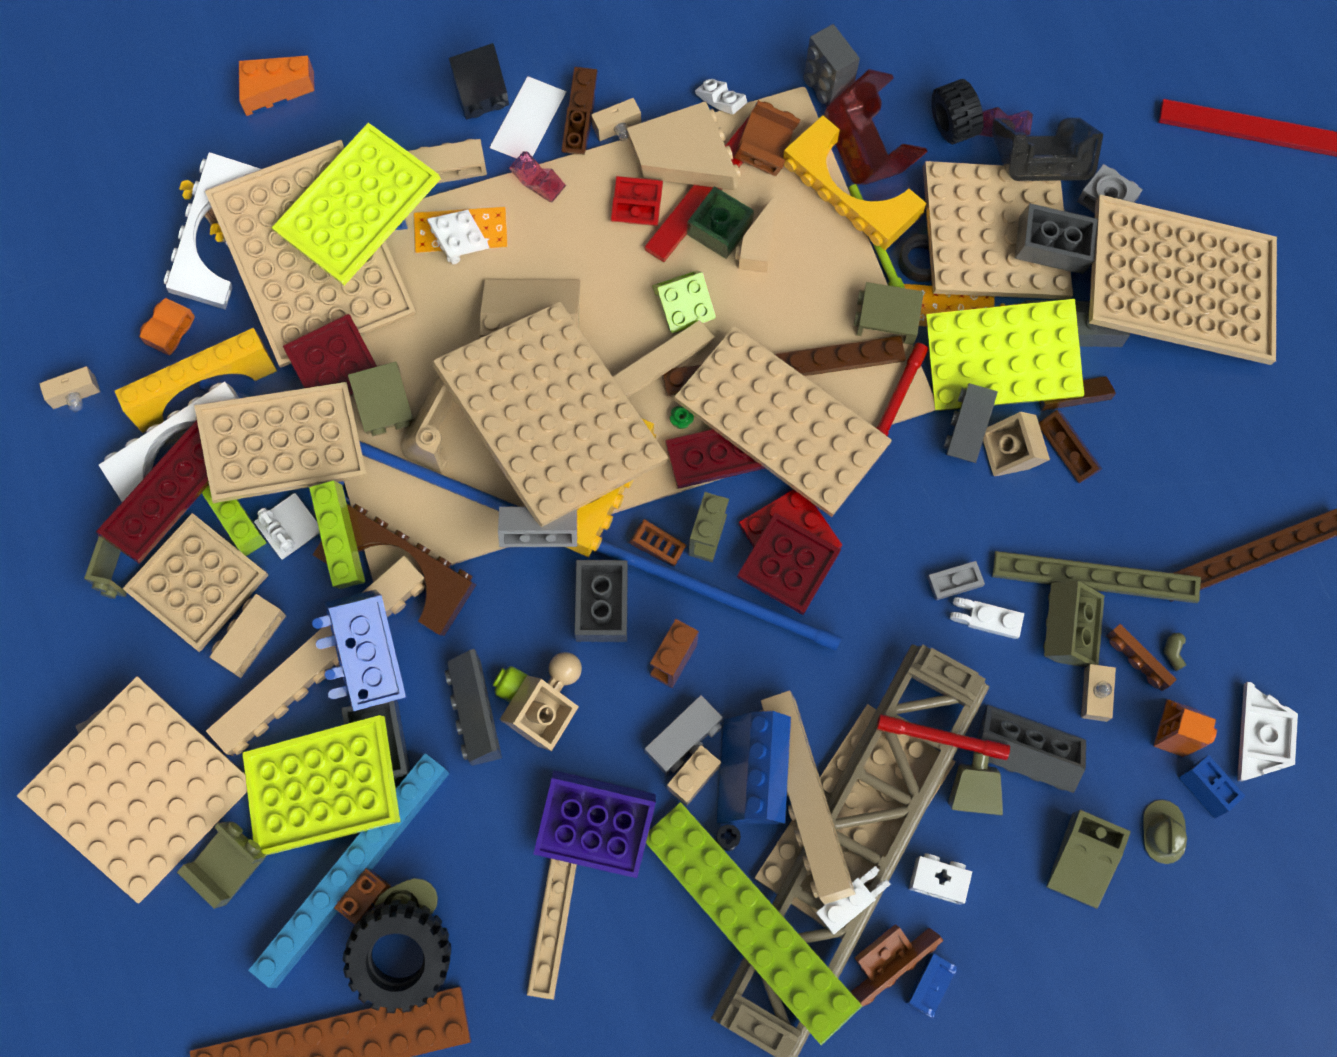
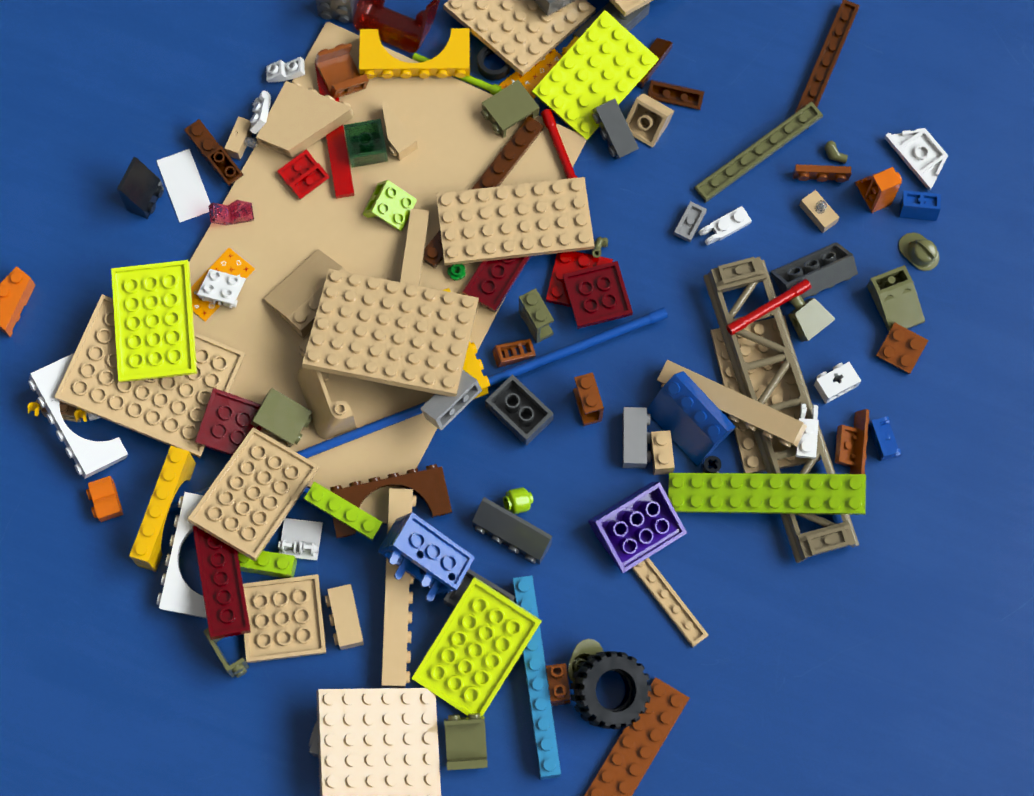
camera: 45 degrees left, 0 degrees up
(70, 389) = (88, 587): tan piece -> none
(454, 160) = (171, 246): tan brick -> none
(539, 708) = (547, 495): tan brick -> none
(657, 109) = (260, 110): none -> white hinge
(840, 519) = (600, 242): none -> olive arm
(1044, 912) = (902, 348): none -> dark orange plate
(1074, 624) = (772, 187): olive slope -> none

